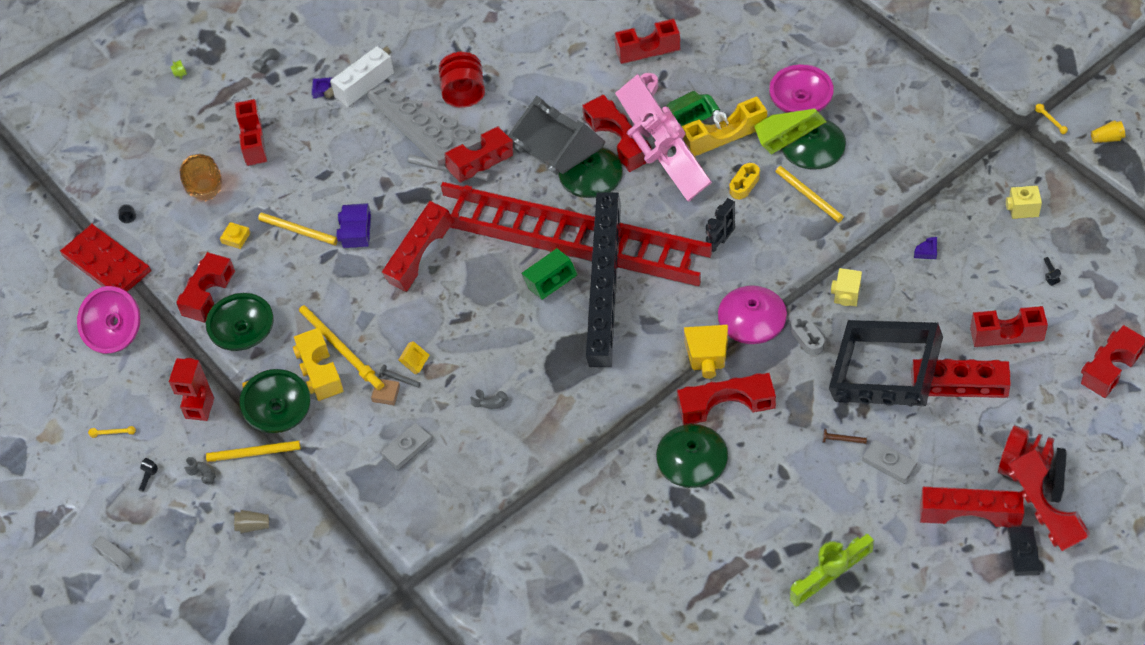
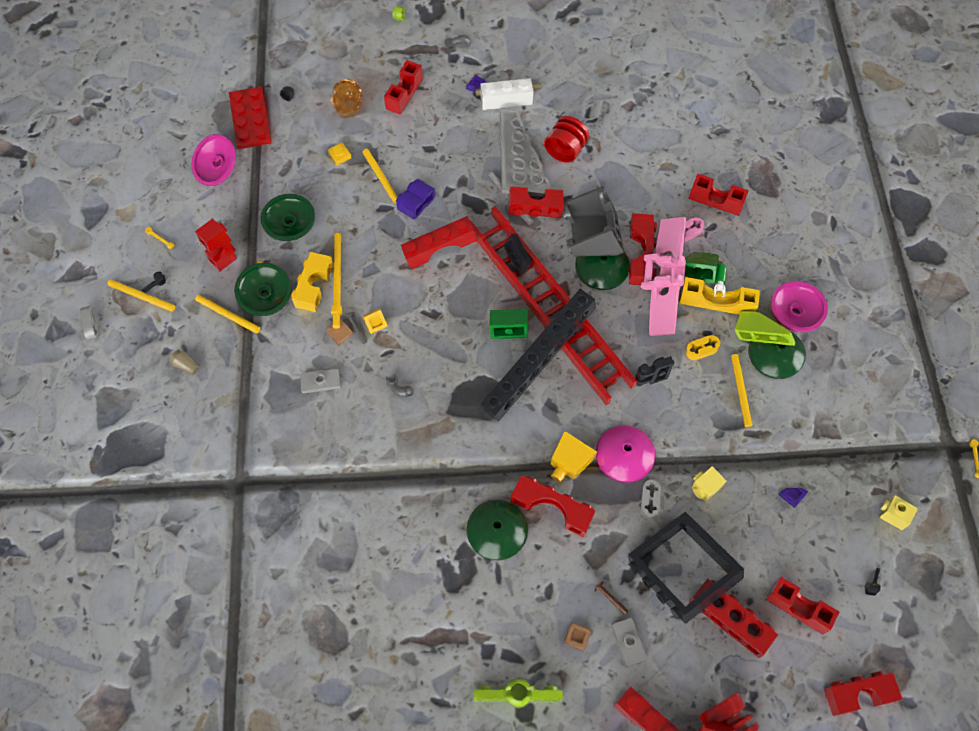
camera: 30 degrees right, 10 degrees up
(143, 494) = (141, 295): none -> yellow bar
(207, 471) = (189, 305): dark grey arm -> none
(211, 272) = (300, 169): red arch -> none
(503, 209) = (517, 254): none -> black plate
(841, 489) = (577, 636): none -> medium nougat tile

